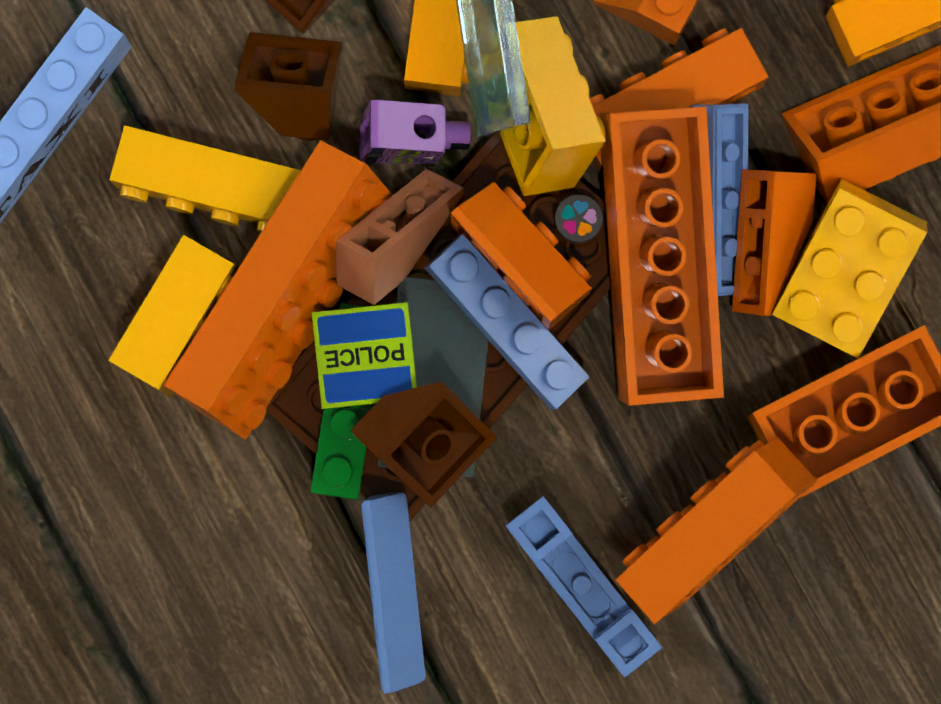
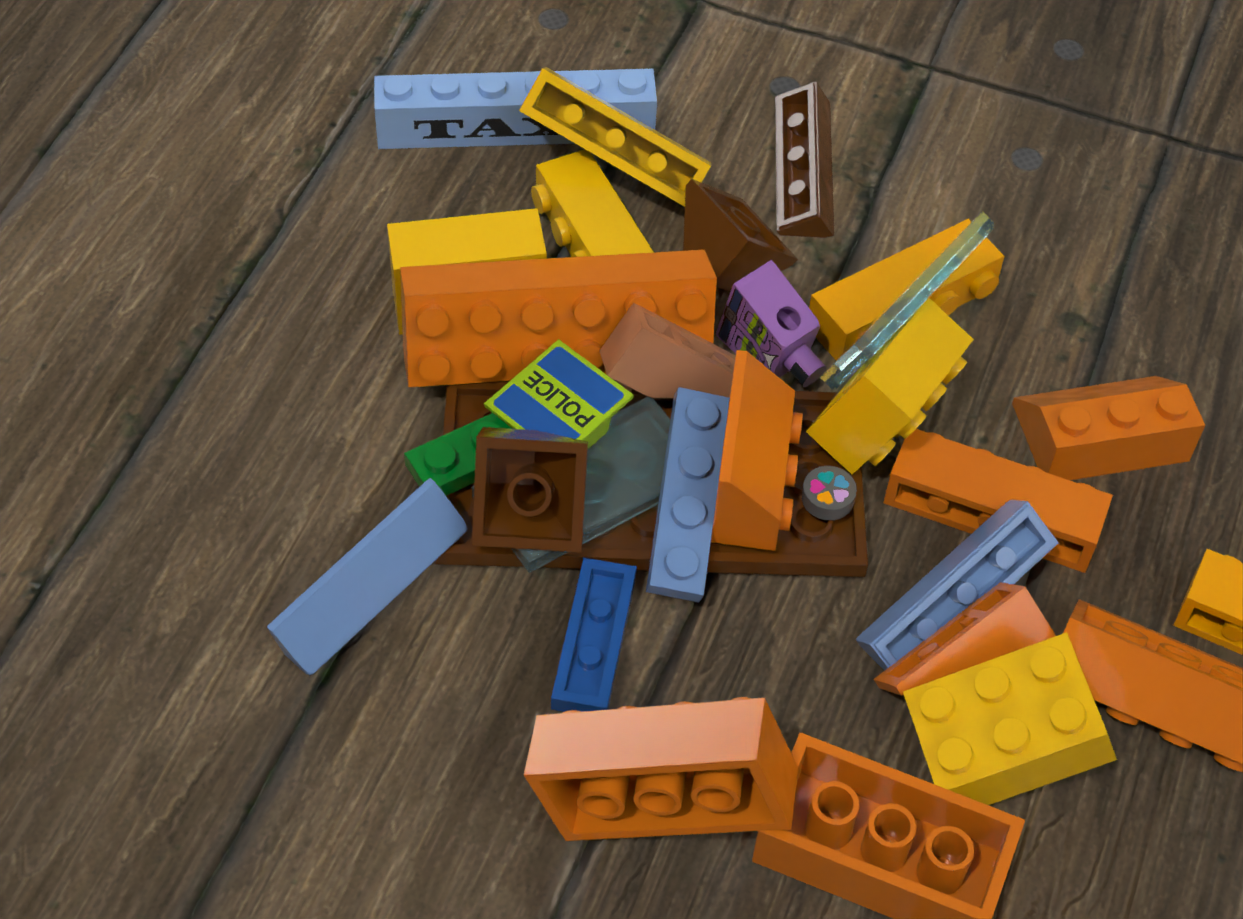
camera: 45 degrees right, 30 degrees down
(139, 101) = (613, 135): none -> yellow brick
(553, 470) = (594, 636): none -> blue plate
(583, 586) = (521, 691): medium blue slope -> none
(662, 256) = (861, 561): orange brick -> none

